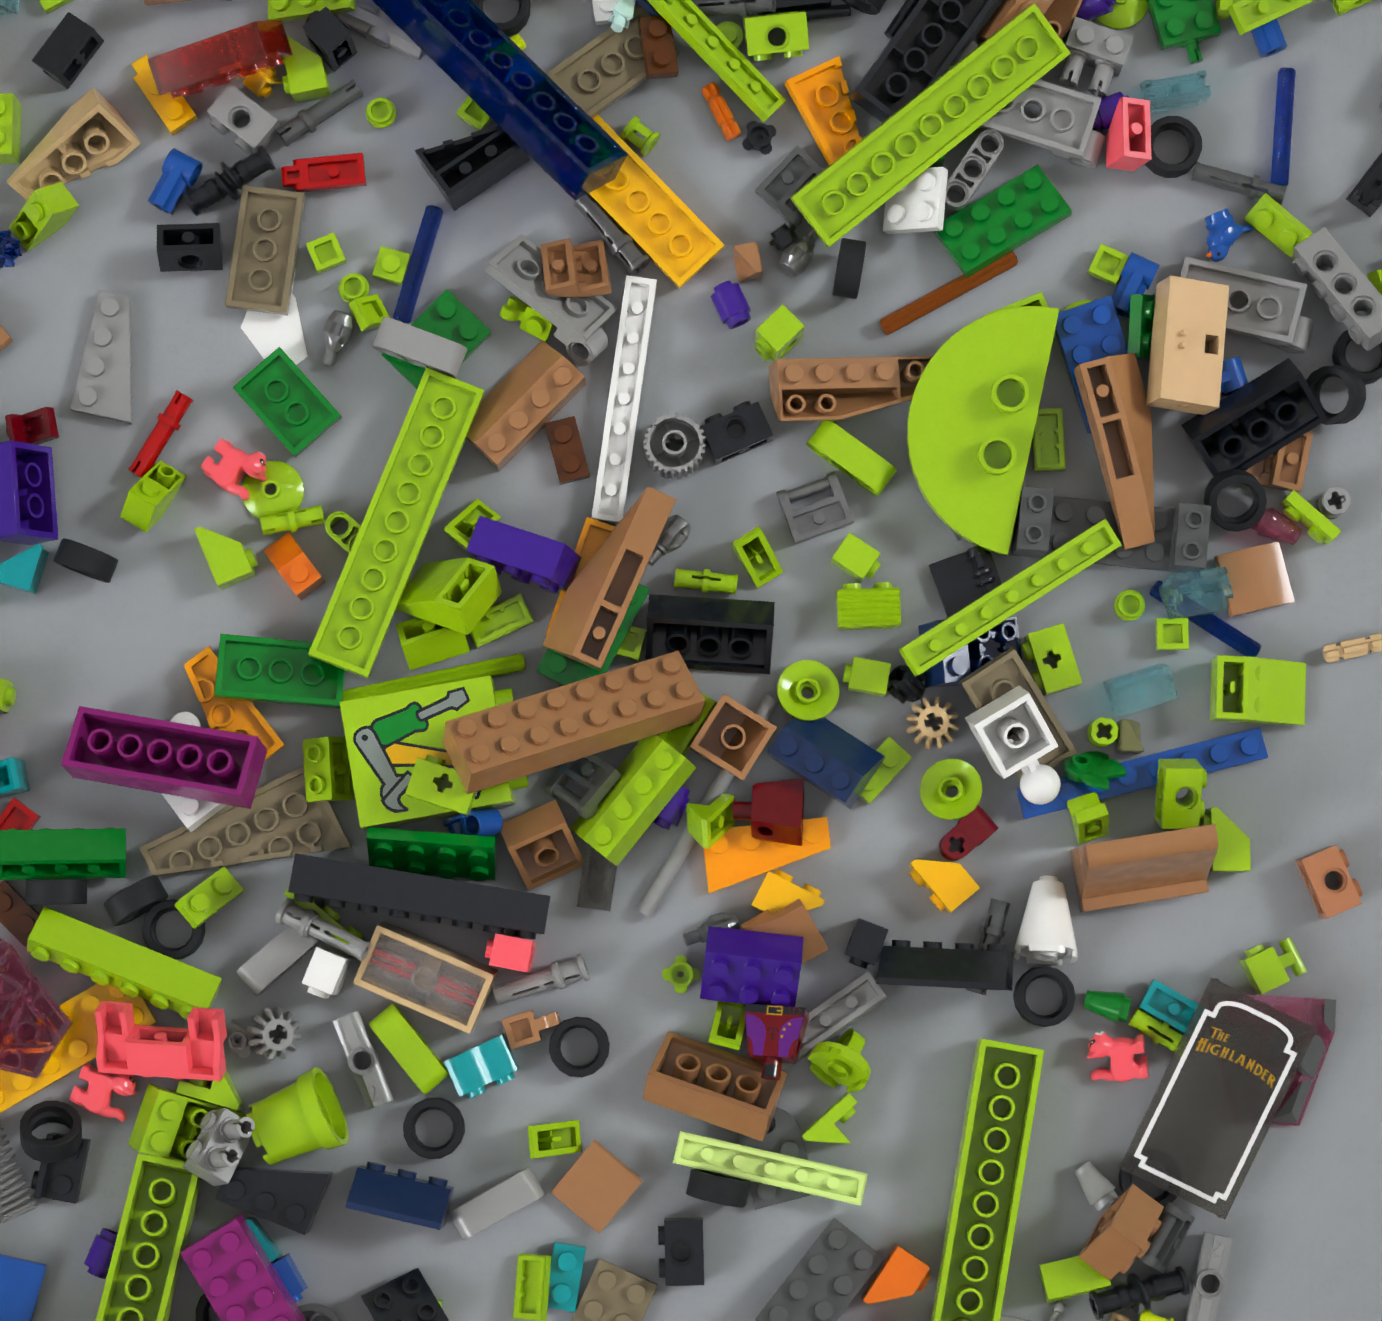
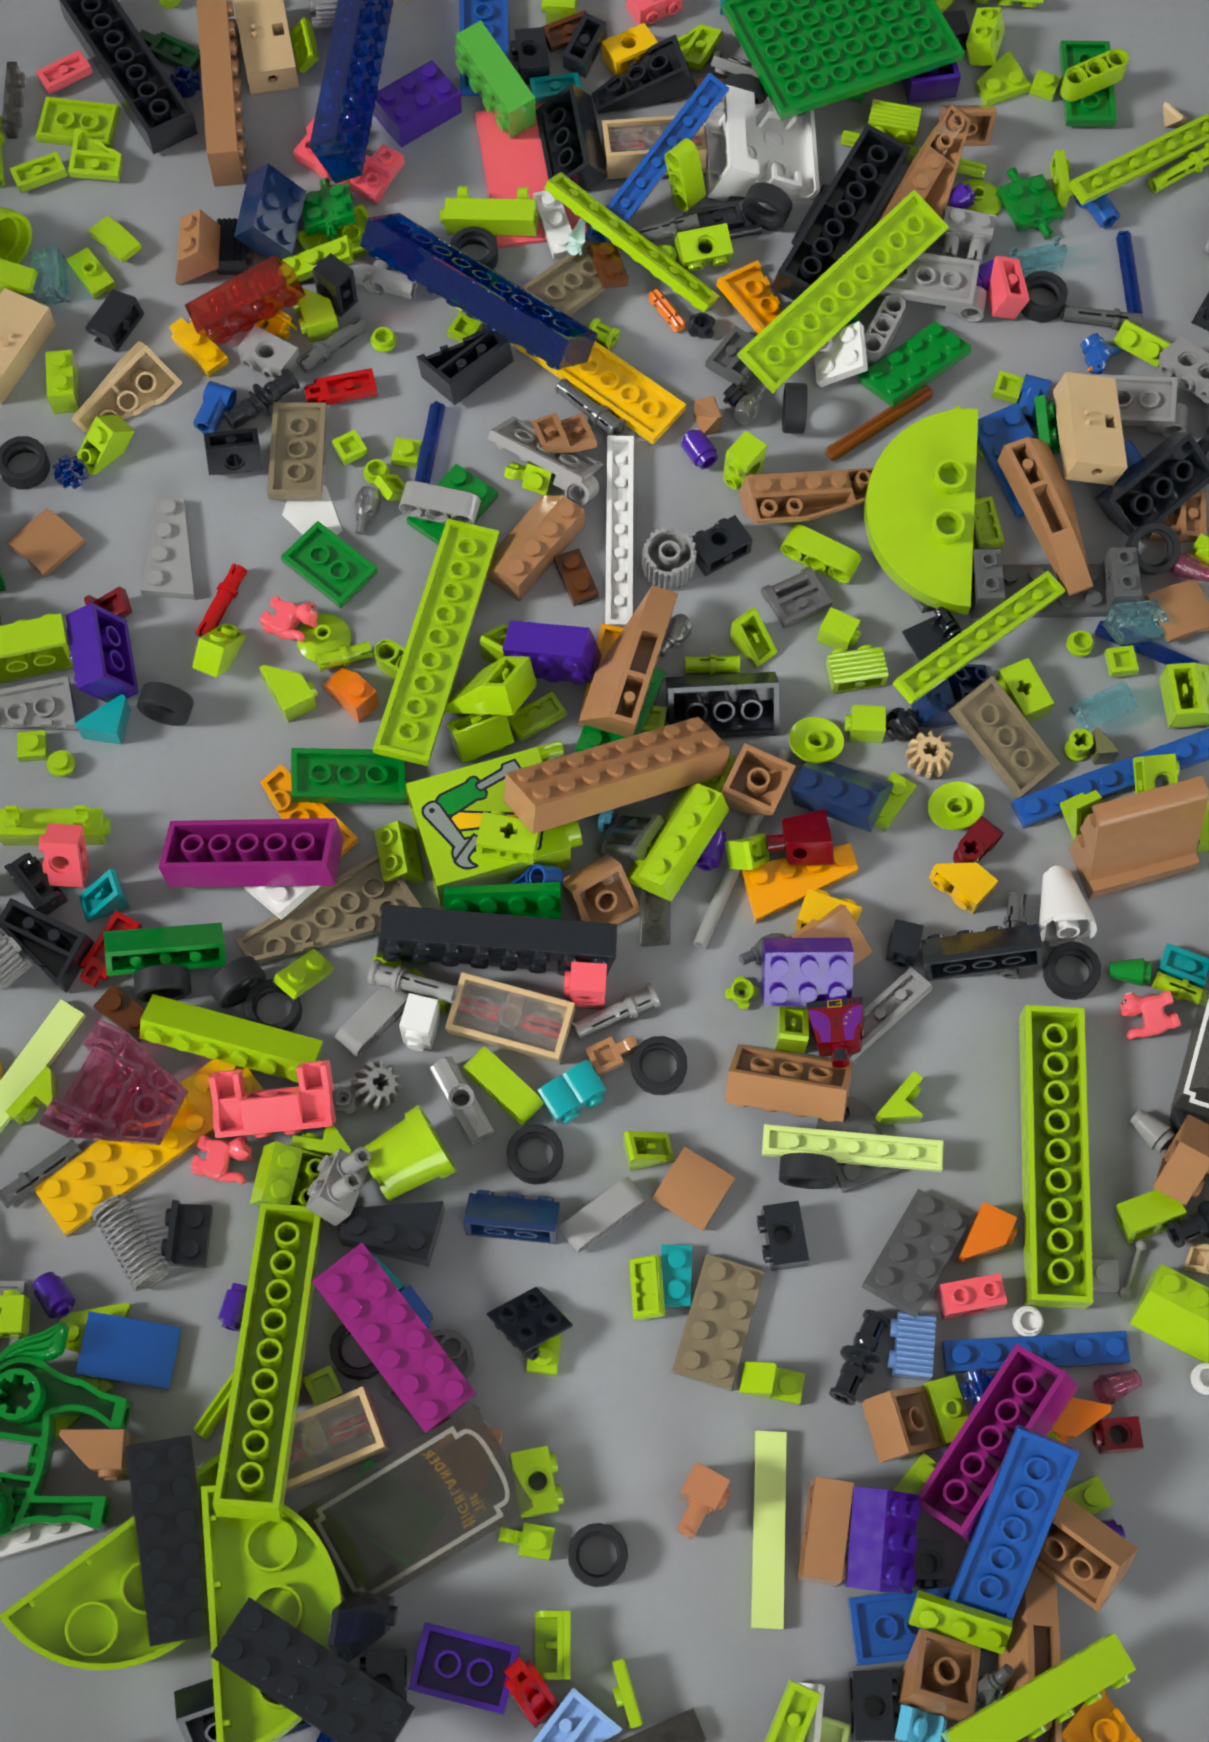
camera: 10 degrees left, 15 degrees down
(50, 1150) = (173, 1185): black tyre -> none
(841, 1062) = (901, 1047): lime tile -> none
(1021, 750) = (1002, 758): white brick -> none
(1093, 769) = (1069, 773): green plate -> none

